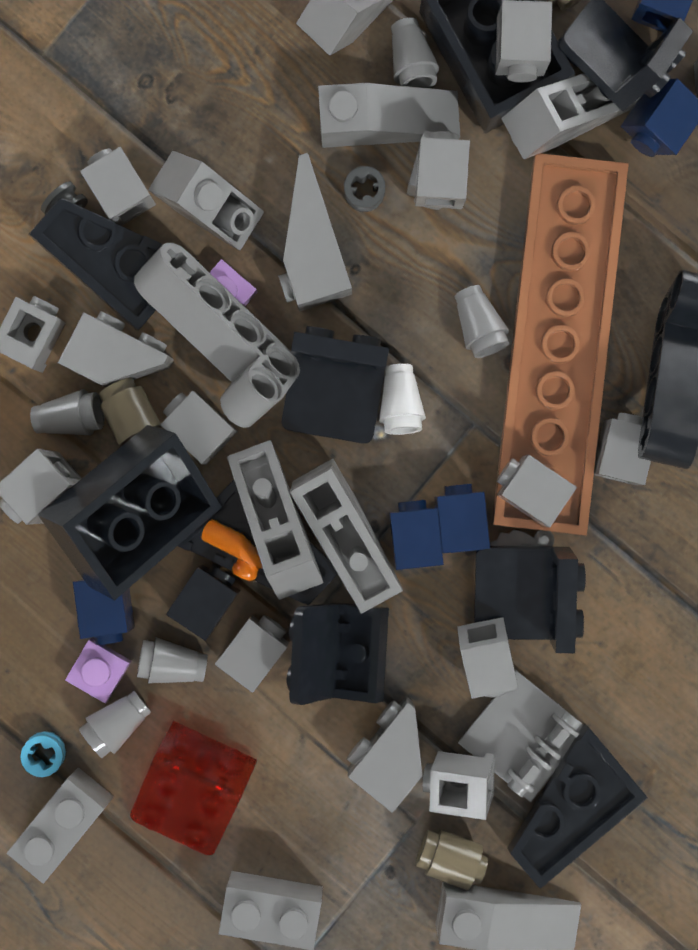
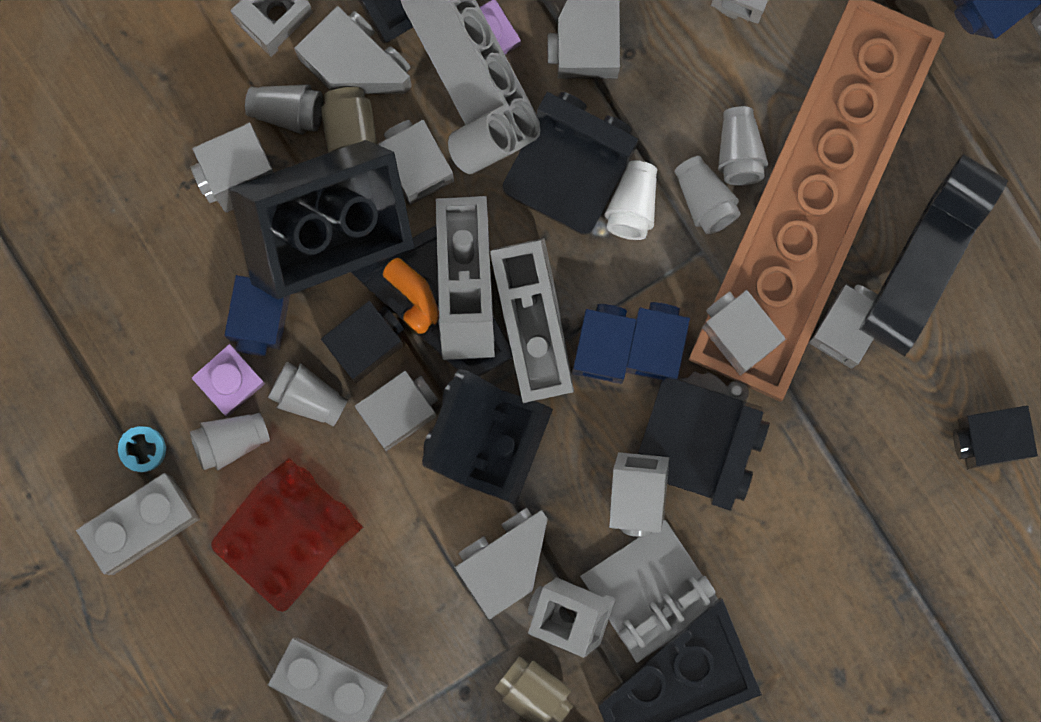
camera: 15 degrees right, 5 degrees down
(463, 375) = (707, 197): none -> light grey cone

